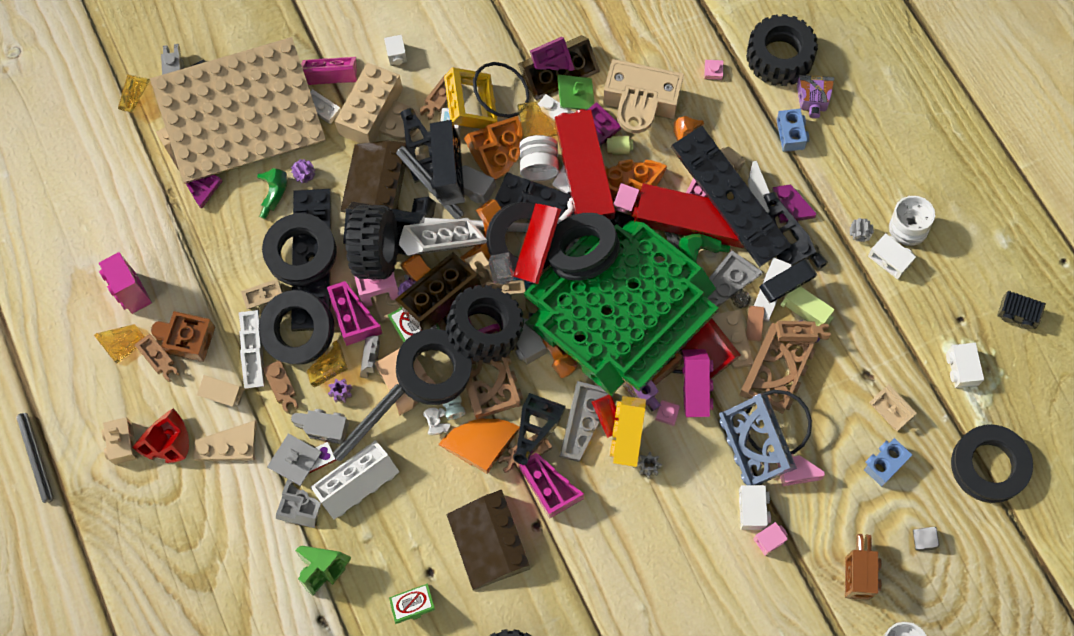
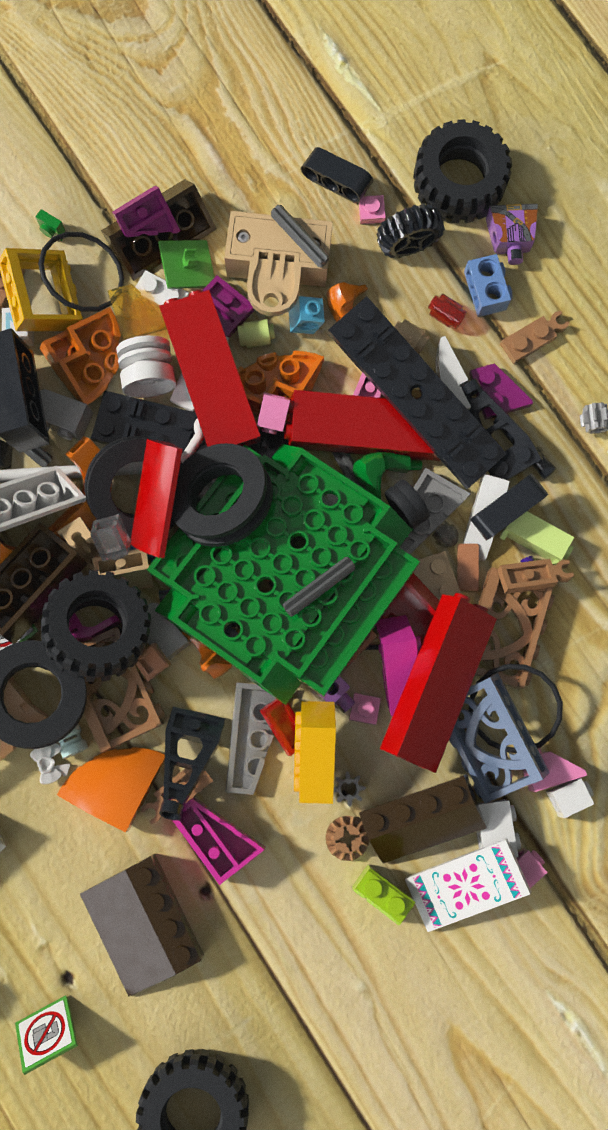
camera: 15 degrees left, 10 degrees up
(482, 56) = (49, 224): none -> green plate
(519, 358) = (152, 662): none -> nougat tile
(637, 507) = (335, 832): none -> medium nougat gear
(644, 314) = (319, 586): none -> dark grey axle
(657, 136) = (306, 315): none -> medium azure brick
(659, 80) = (300, 236): none -> dark grey axle
(665, 541) = (383, 895): none -> lime brick
(691, 43) = (337, 174): none -> black beam
(700, 490) = (423, 819): none -> dark brown slope
(715, 270) = (407, 503): none -> black tyre
(722, 393) = (439, 682): none -> red brick
(728, 540) = (468, 885): none -> white tile
(739, 86) = (410, 231): none -> black gear
(760, 144) = (447, 311): none -> clear red brick
(811, 491) = (571, 797): none -> white brick
(821, 169) = (532, 337): none -> medium nougat plate

